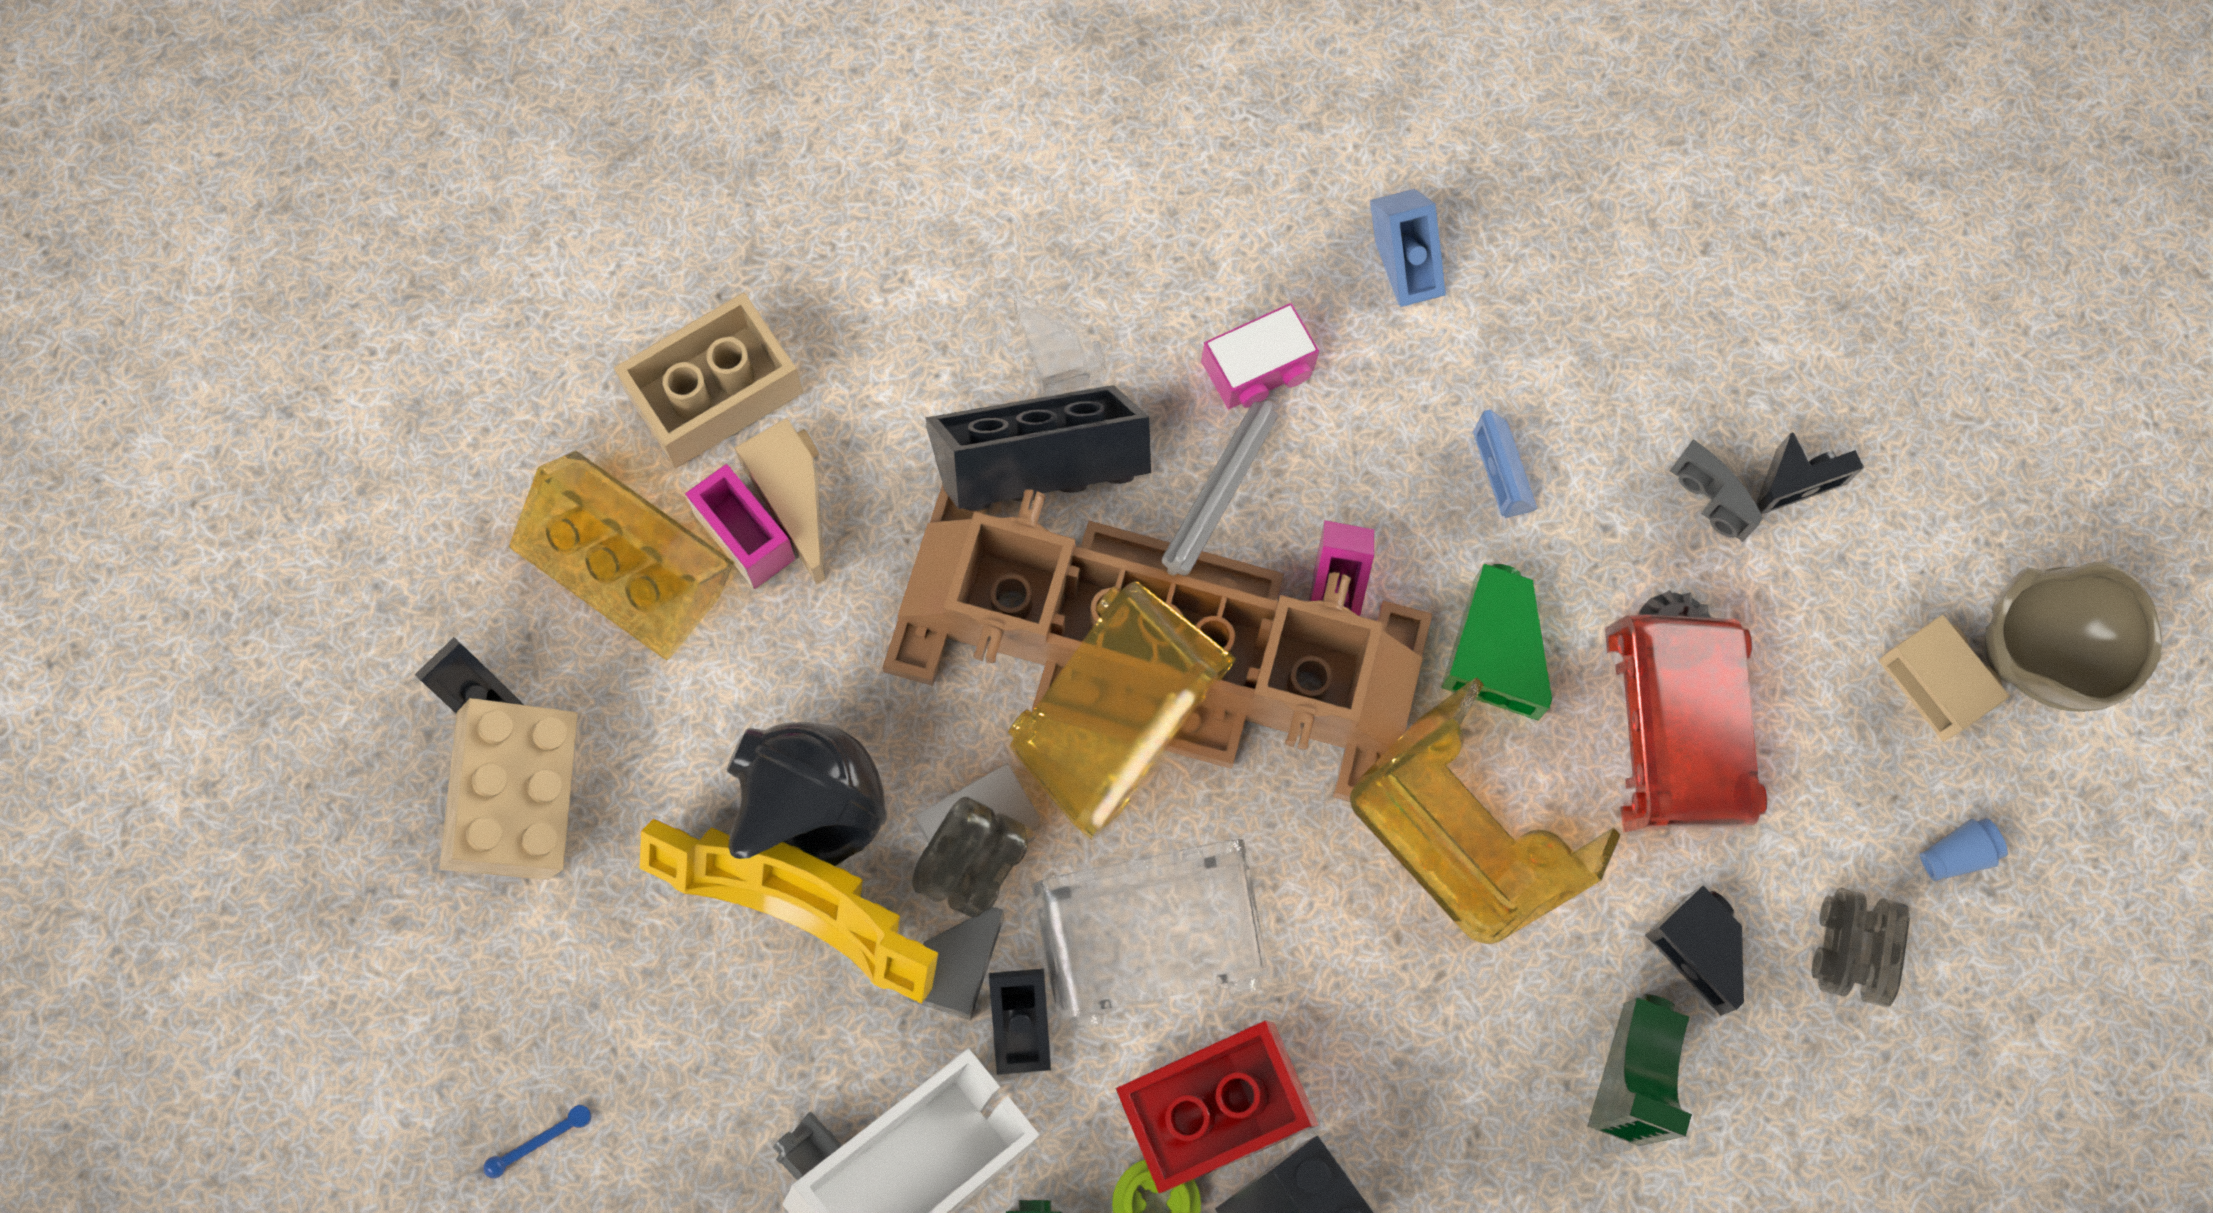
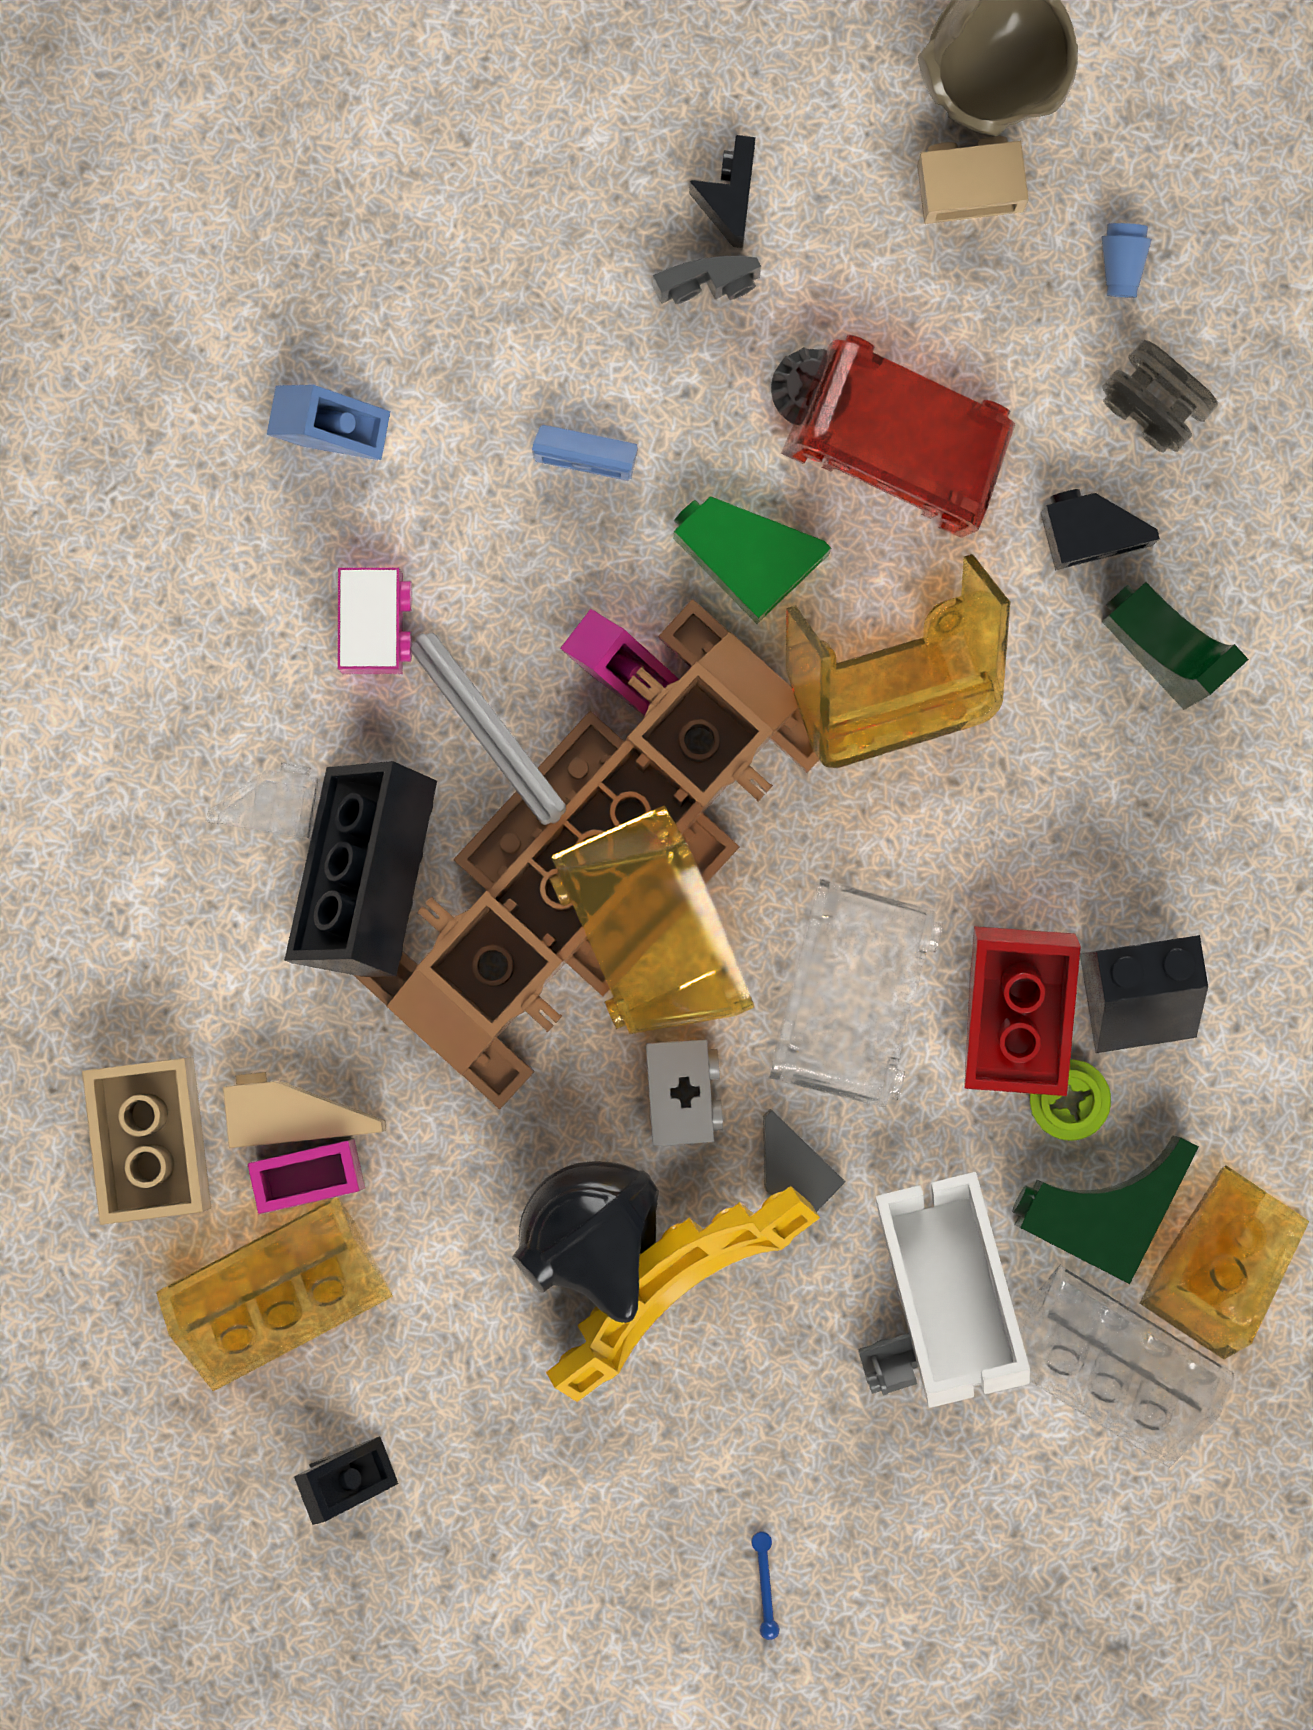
camera: 60 degrees left, 15 degrees up
(509, 790) = (456, 1485): tan brick -> none
(970, 857) = (718, 1119): clear smoke brick -> none
(1020, 1021) = (871, 1141): black slope -> none

